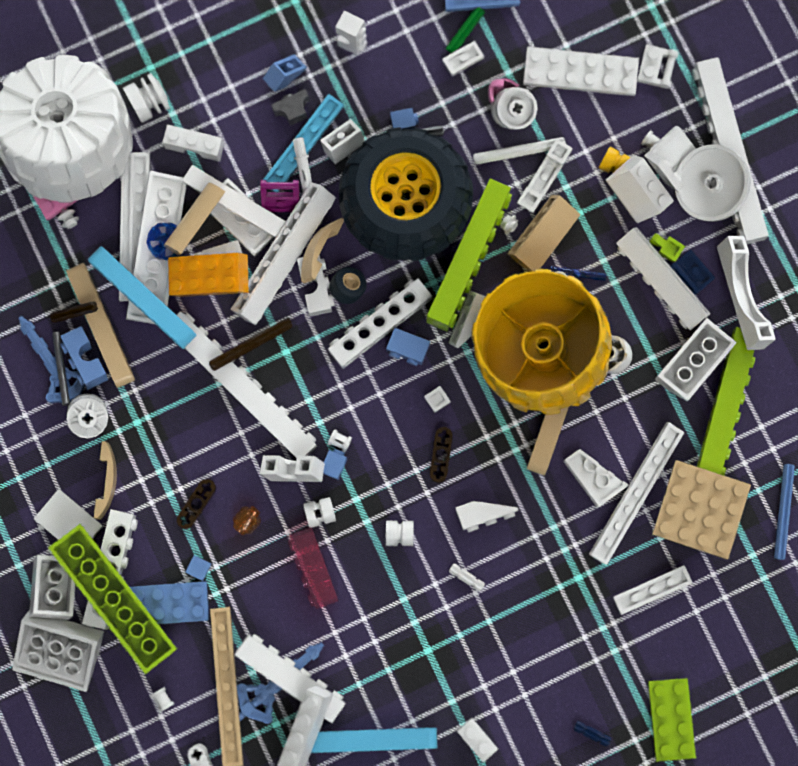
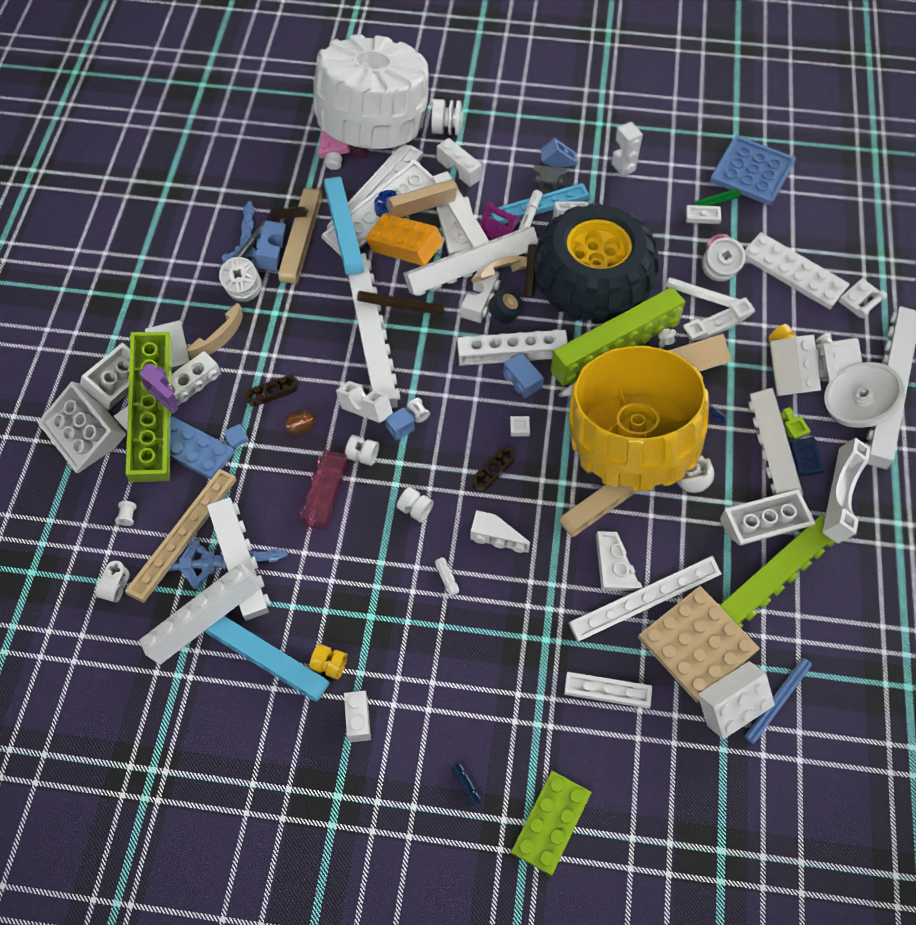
camera: 30 degrees right, 20 degrees down
(115, 583) = (157, 385): none -> medium lavender plate
(348, 237) = (530, 273): none -> dark brown axle
(417, 715) = (327, 661): none -> yellow wheel
(755, 538) = (736, 699): none -> white brick

